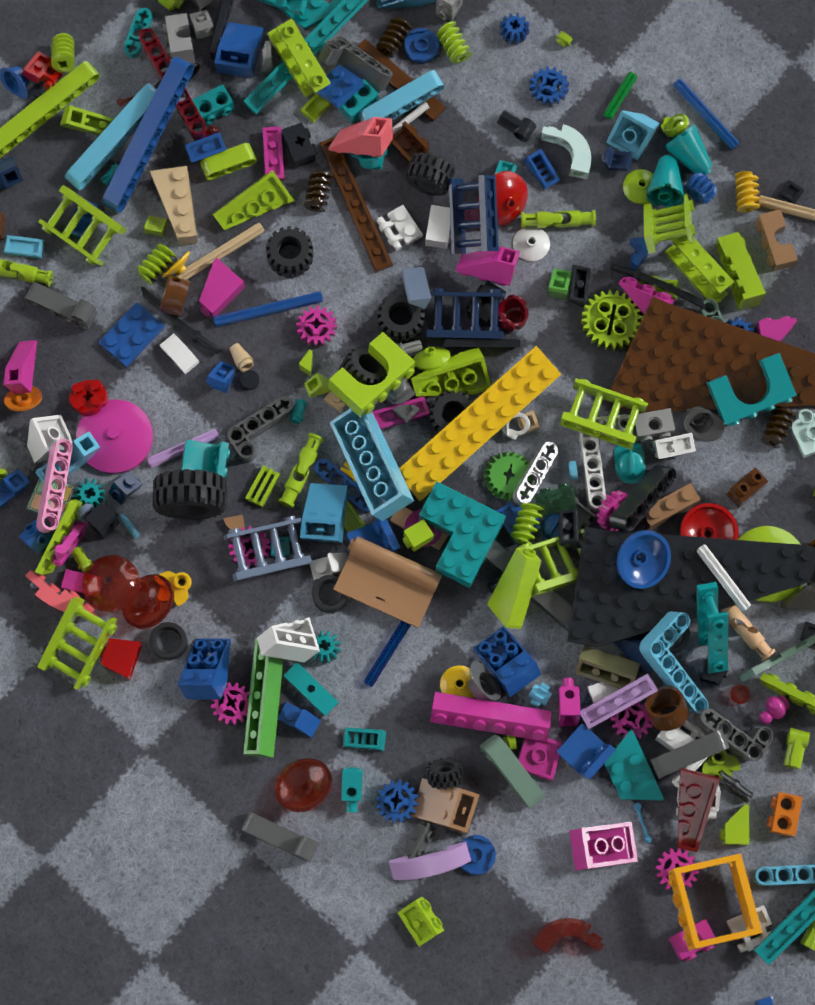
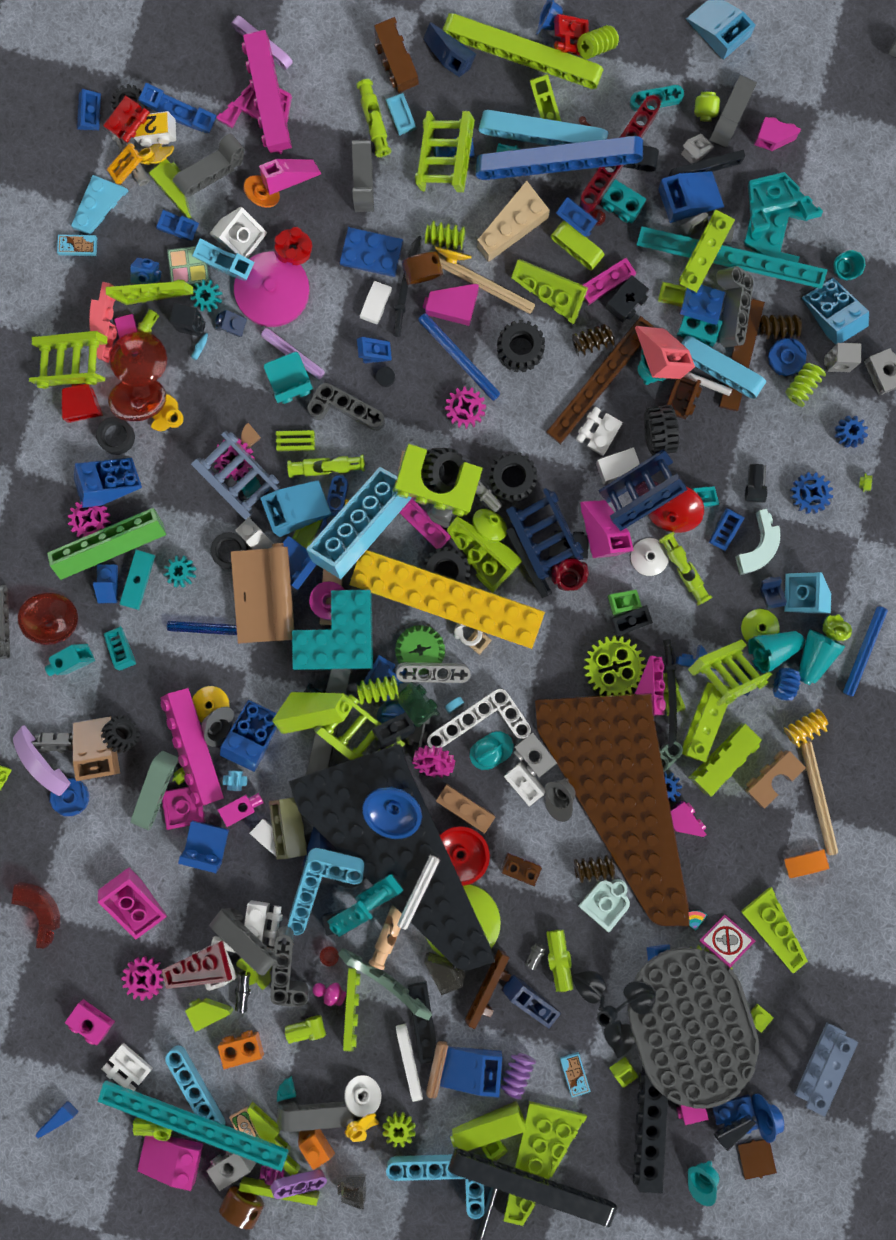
camera: 70 degrees right, 10 degrees up
(48, 492) = (183, 267): bright pink beam -> none
(69, 543) = (149, 302): dark pink plate -> none
(84, 511) = (184, 300): sand blue tile -> none
(155, 226) = (482, 215): lime slope -> none
(178, 37) = (664, 135): light grey arch -> none
(189, 494) = (244, 380): black tyre -> none
(241, 358) = (400, 358): tan cone -> none
(289, 641) = (160, 539): white wedge -> none
(297, 414) = (378, 434): teal pin -> none
(306, 363) = (426, 418): lime slope -> none
(317, 385) = (411, 436): lime slope -> none
(396, 810) = (70, 701): blue gear -> none
(406, 412) = (427, 529): flat silver tile -> none
(416, 286) = (546, 475): sand blue slope -> none
(417, 535) = (315, 599): lime brick -> none
(591, 427) = (501, 718): lime fence -> none
(618, 701) = (260, 853): lavender plate -> none
(619, 724) = (261, 876): dark pink gear -> none
(620, 95) = (841, 563): green axle -> none
(631, 771) = (208, 895): teal wing -> none
(637, 807) = (183, 915): dark azure hinge -> none
(643, 498) = (456, 781): black beam -> none
(663, 699) = (279, 888): reddish brown piece -> none
(743, 893) = (148, 1049): light orange window -> none
(778, 390) = (625, 853): teal arch -> none
(791, 192) = (830, 769): black tile -> none

